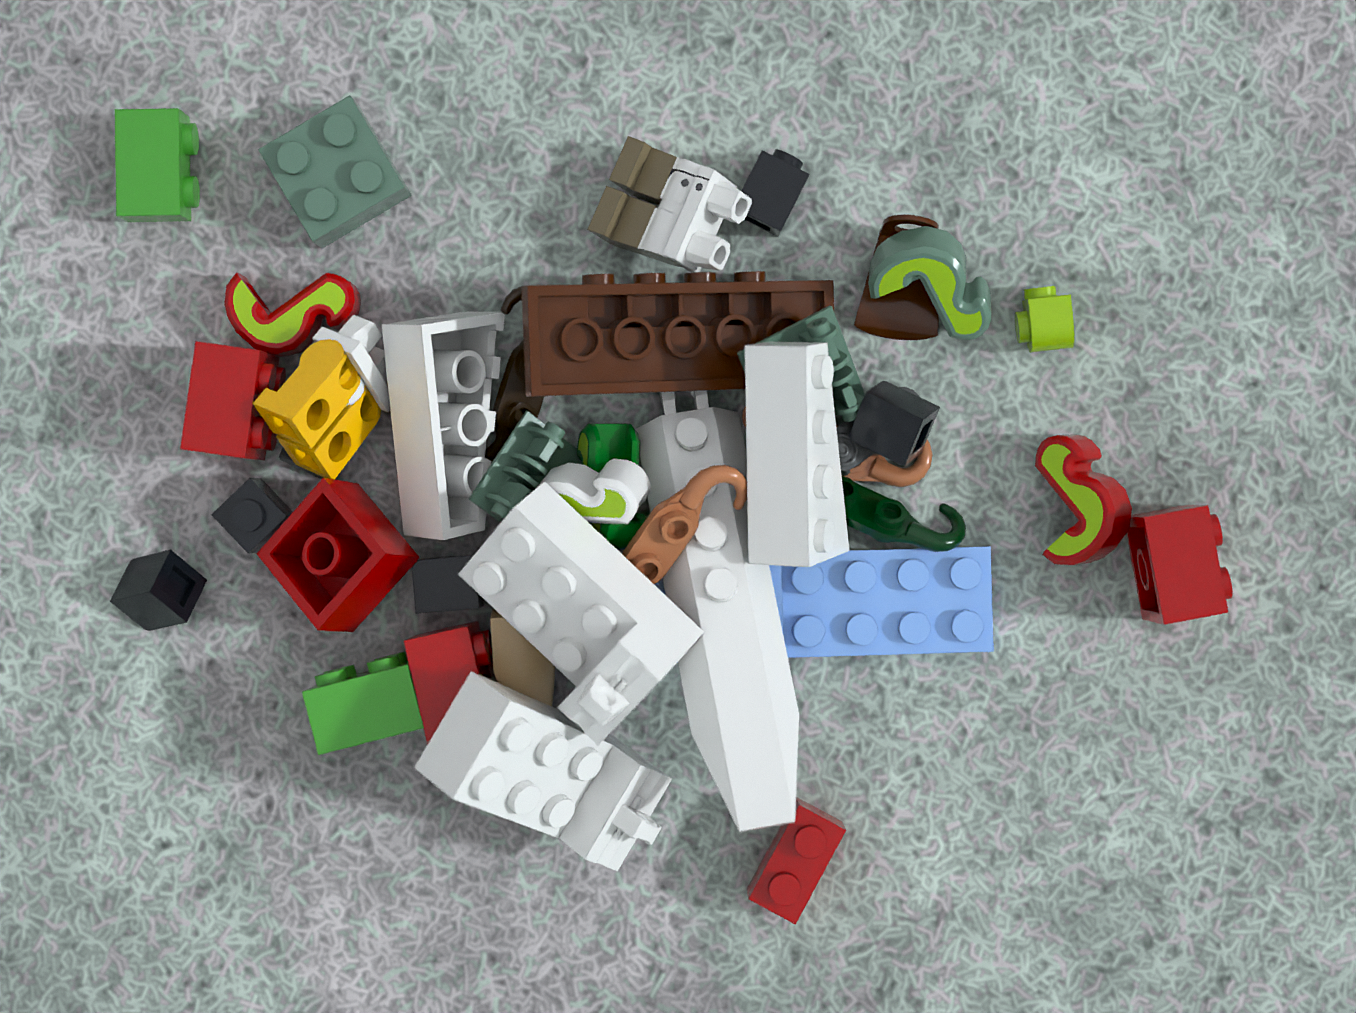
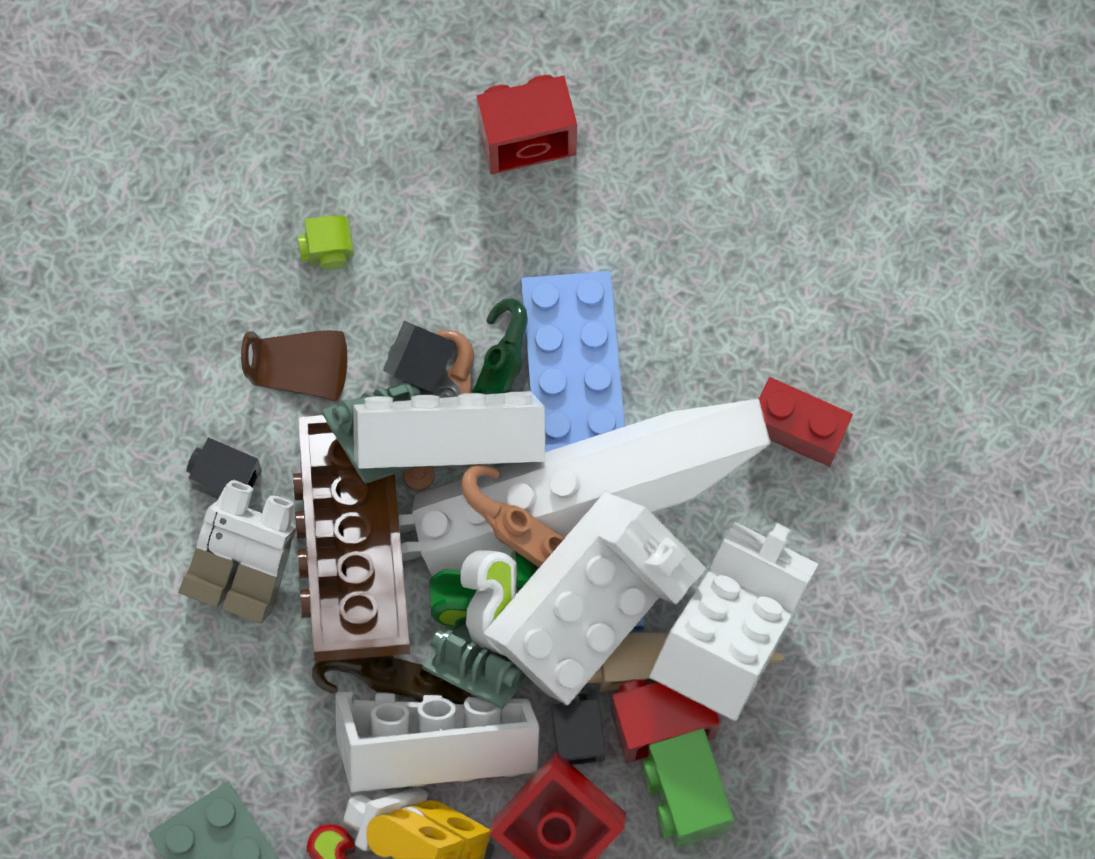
camera: 95 degrees left, 15 degrees down
(941, 266) = (278, 328): sand green animal -> none
(1092, 497) = (473, 195): red animal -> none

